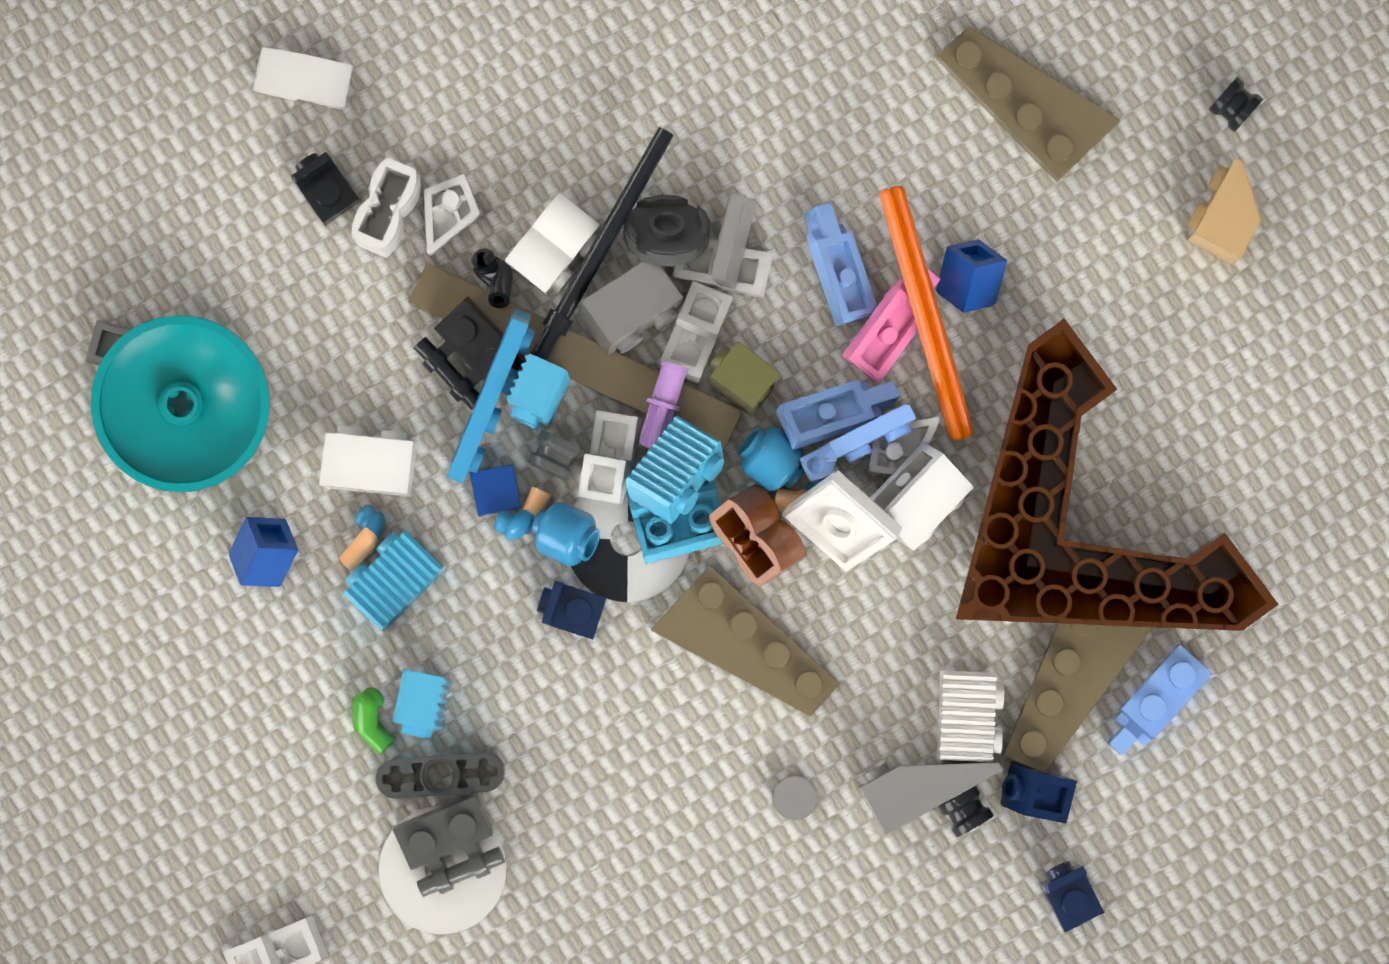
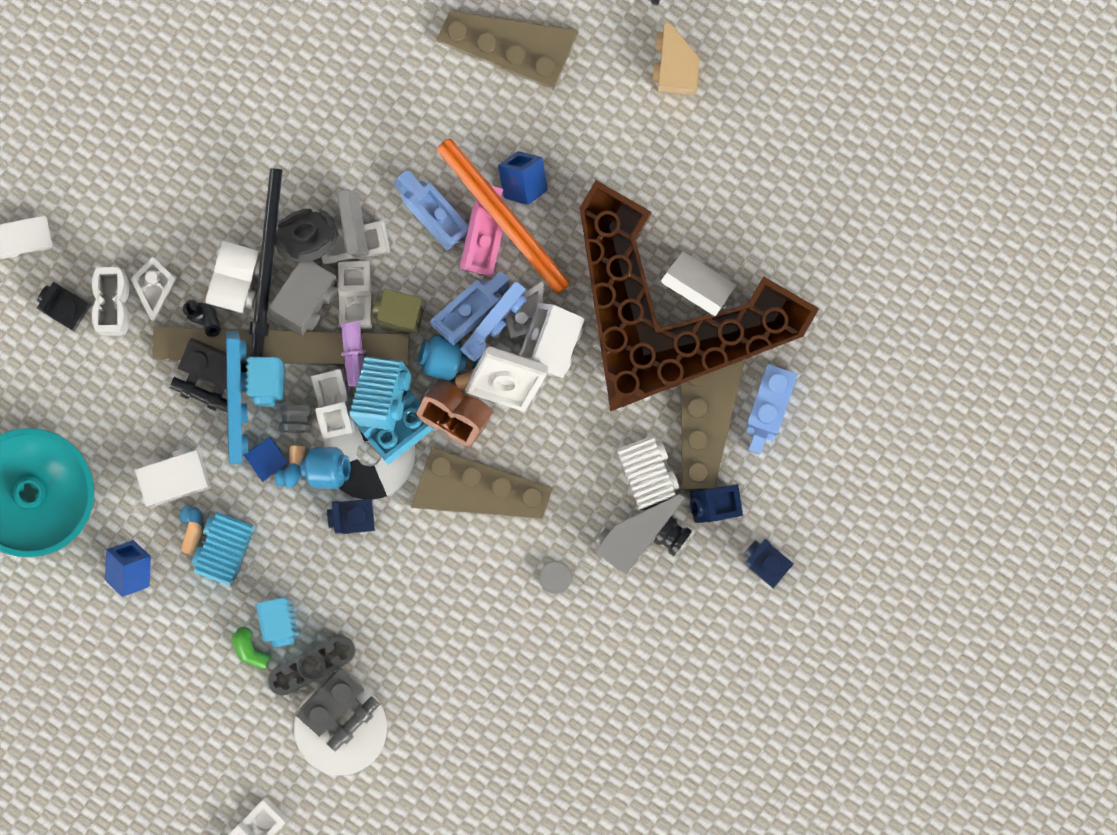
camera: 20 degrees left, 0 degrees up
(1137, 506) = (698, 283): none -> white tile

